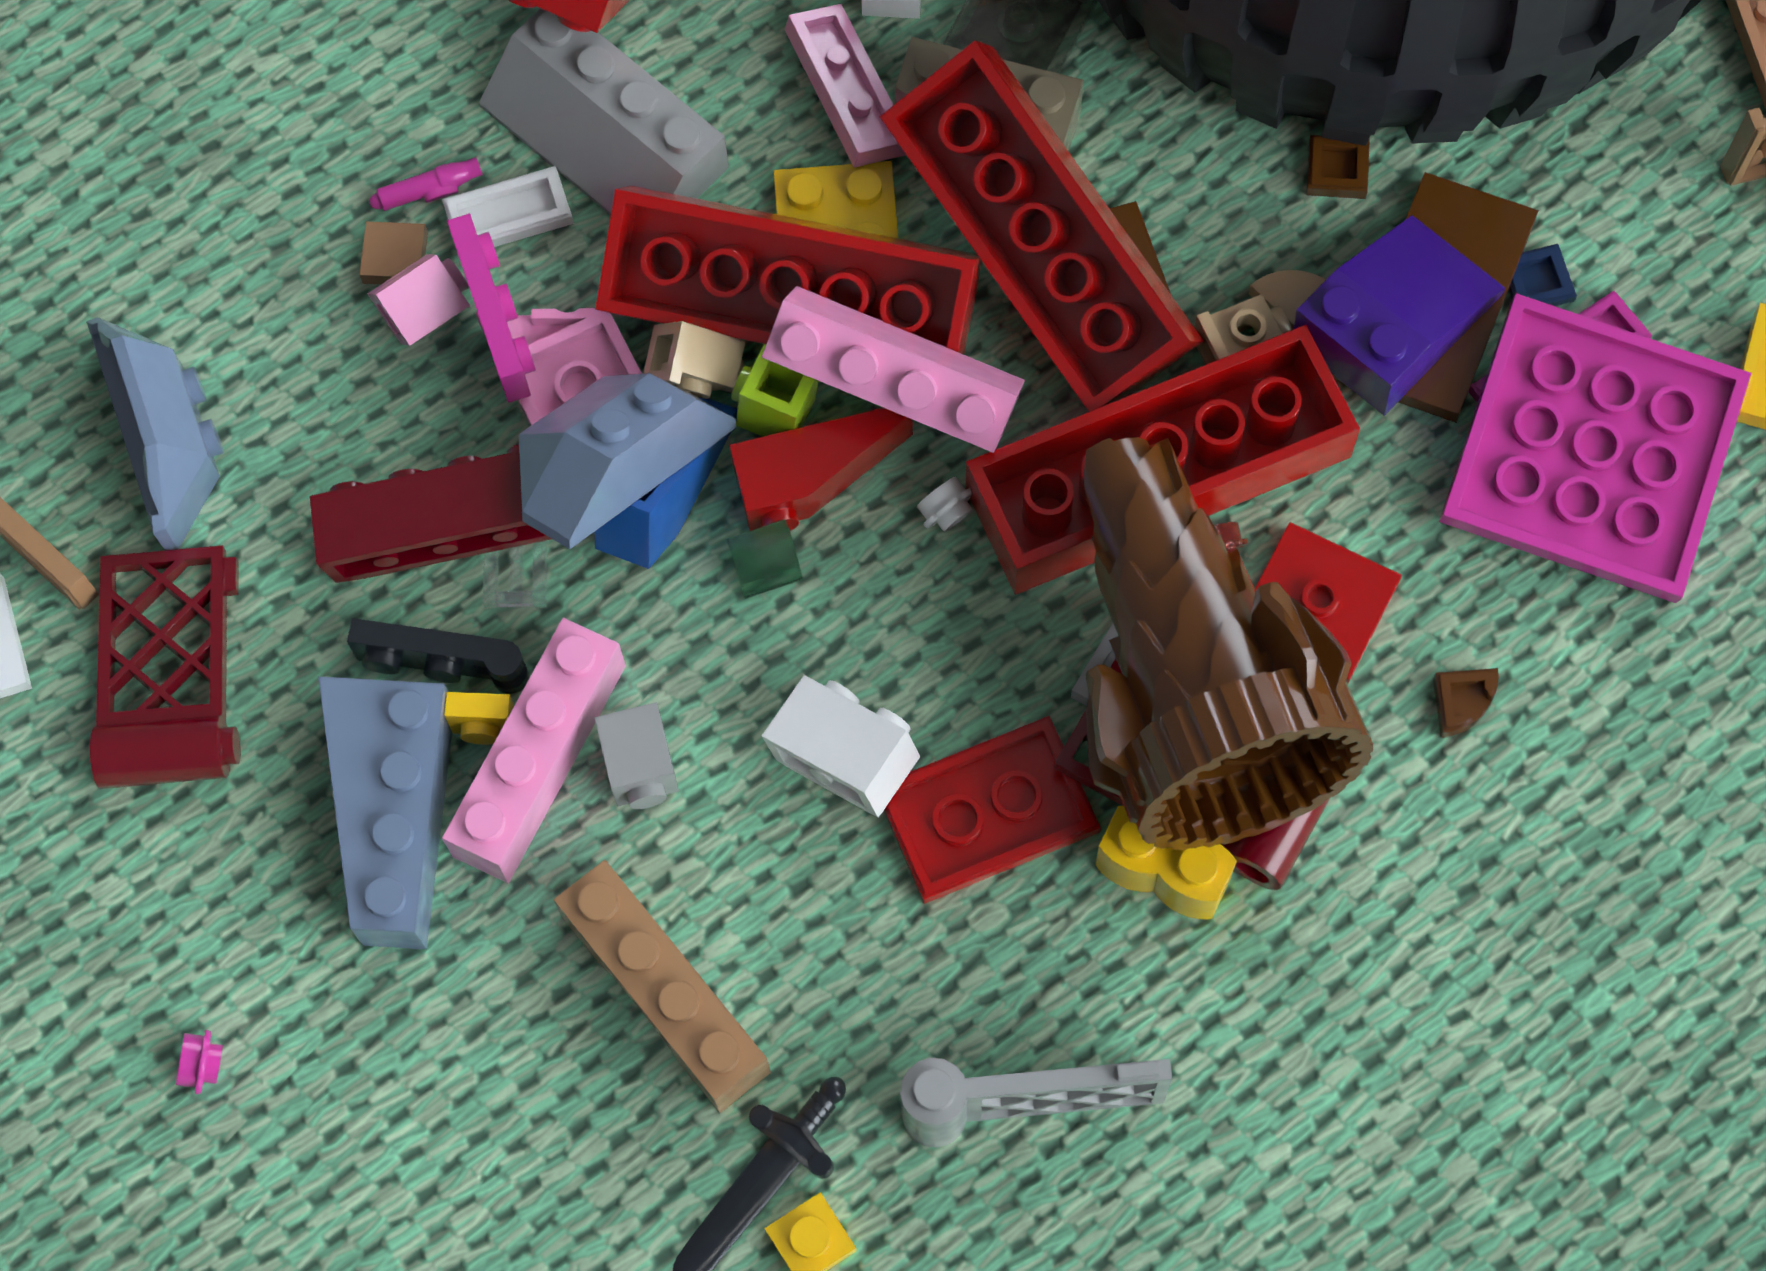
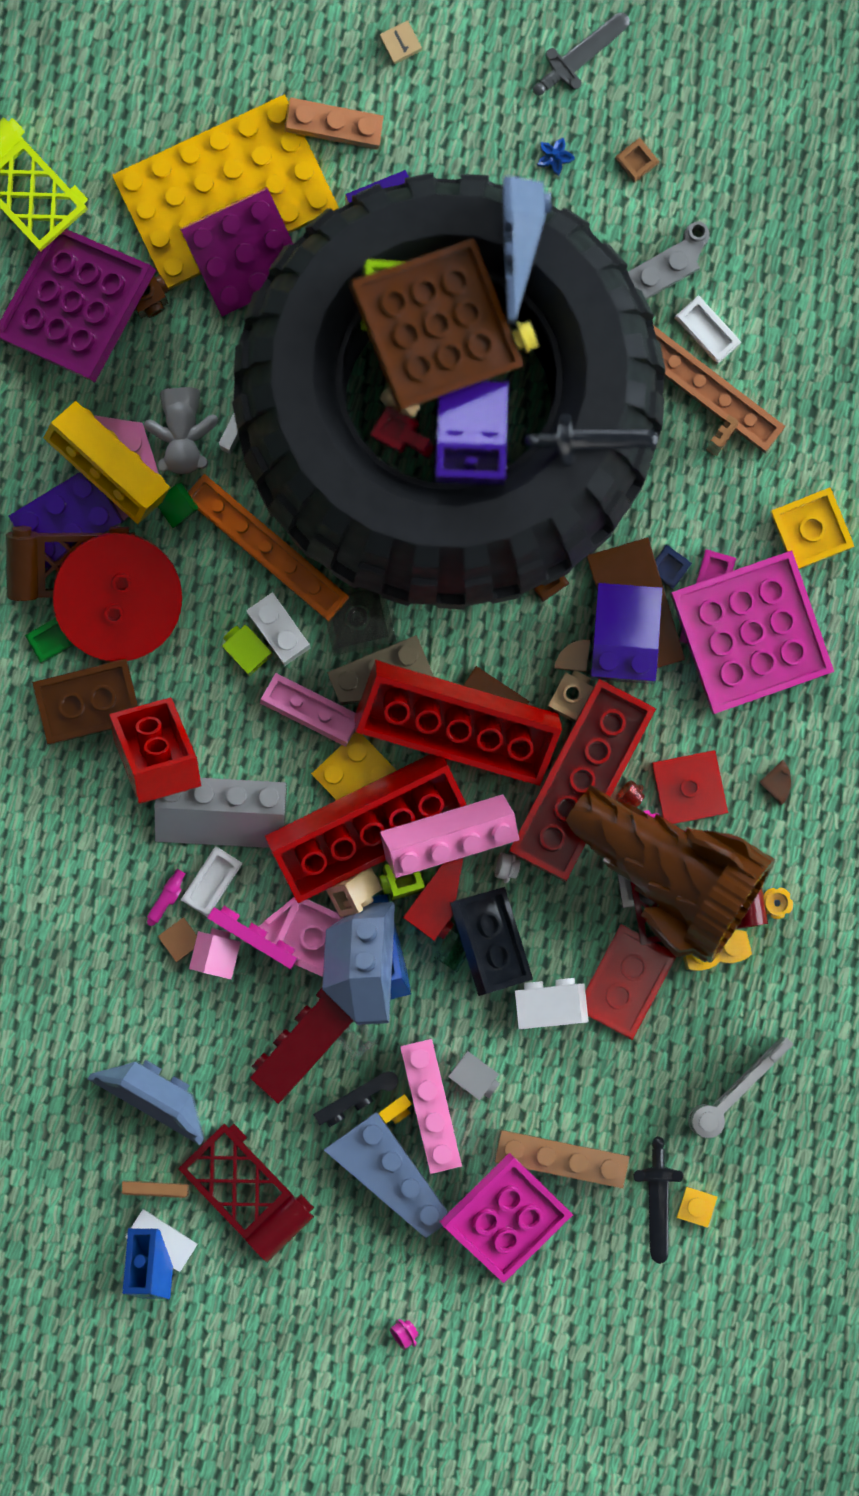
camera: 45 degrees left, 15 degrees up
(497, 1000) = (506, 1218): none -> dark pink plate
(830, 580) = (491, 941): none -> black plate
(1337, 870) = (785, 906): none -> yellow plate

